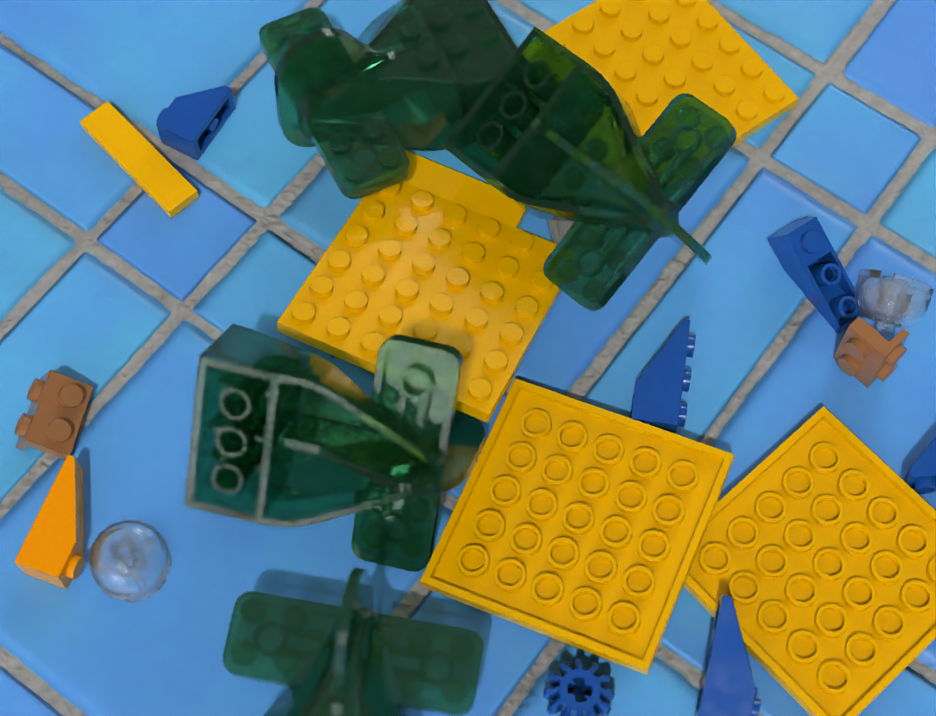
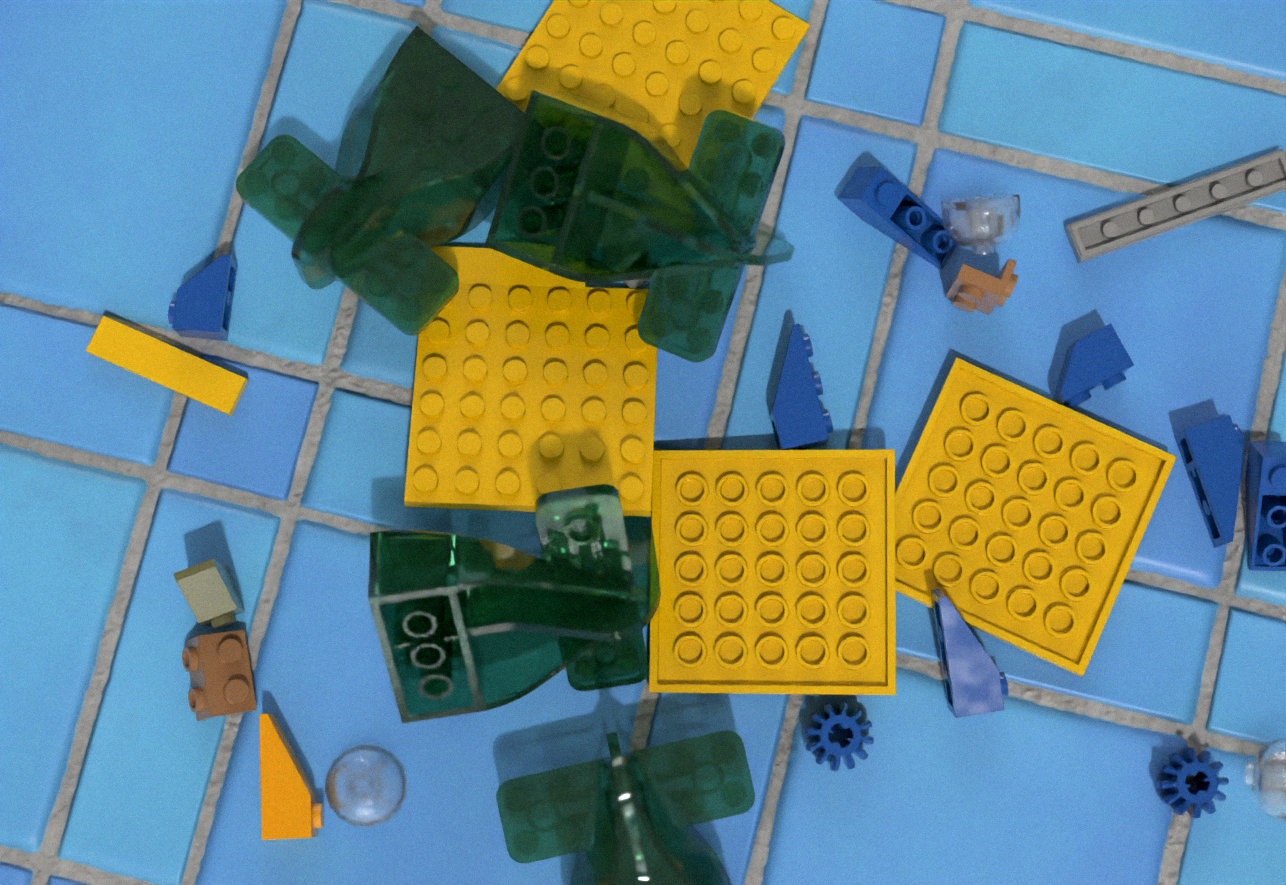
camera: 25 degrees left, 15 degrees up
(79, 339) = (210, 593): none -> slope

